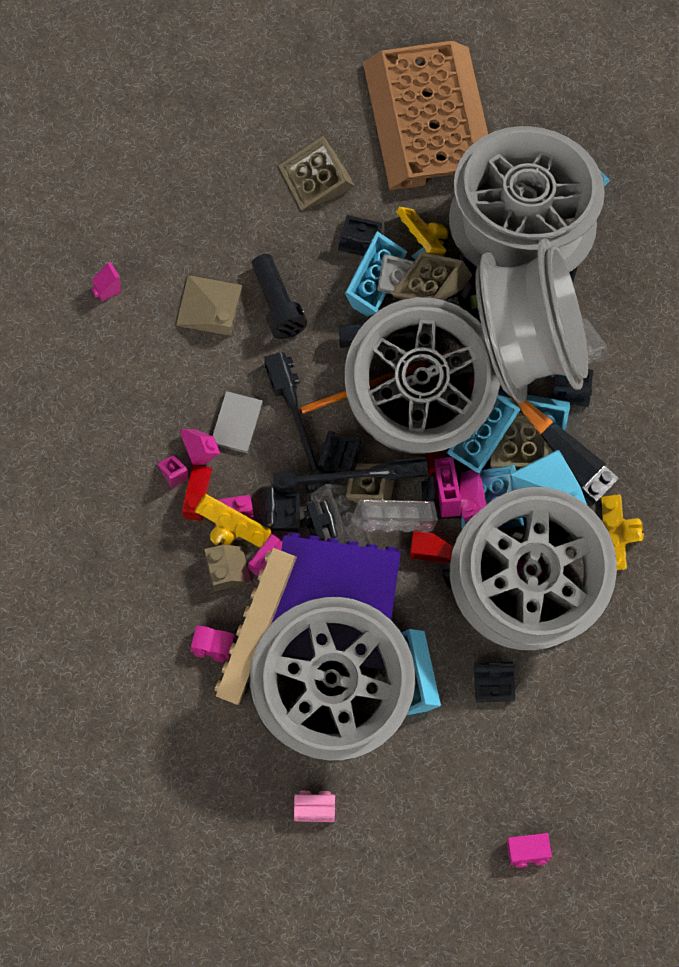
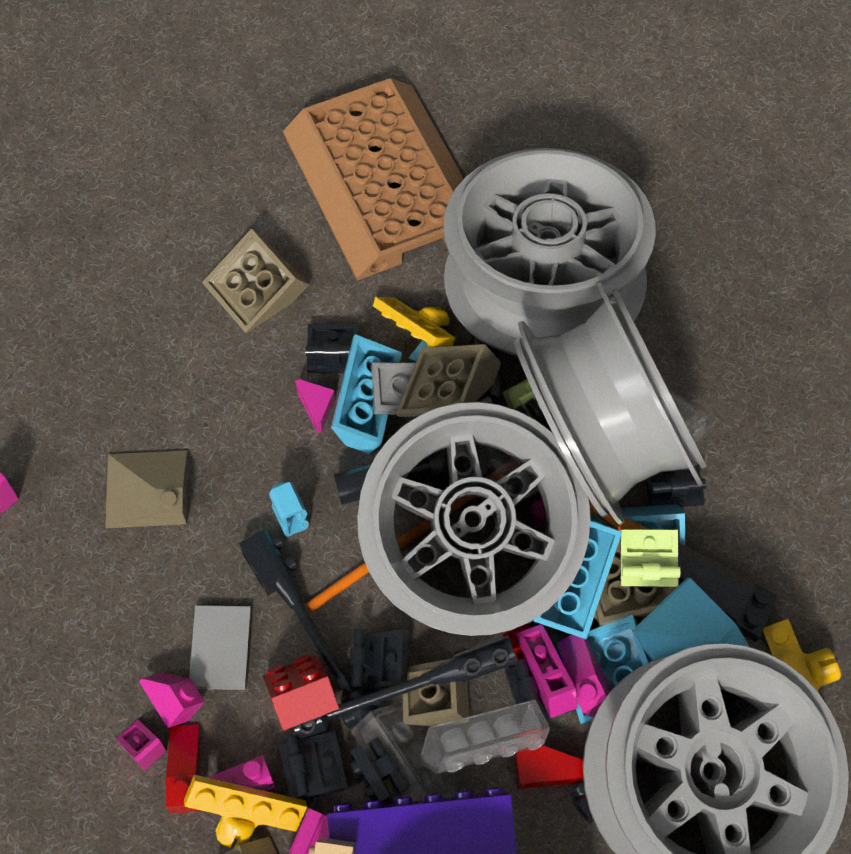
camera: 10 degrees left, 5 degrees down
(283, 460) = (300, 691): none -> brick
(284, 317) = (252, 474): black piece -> none
(303, 341) = (288, 508): none -> medium azure brick
(339, 271) = (316, 401): none -> dark pink slope
(534, 430) = (649, 558): none -> yellowish green plate

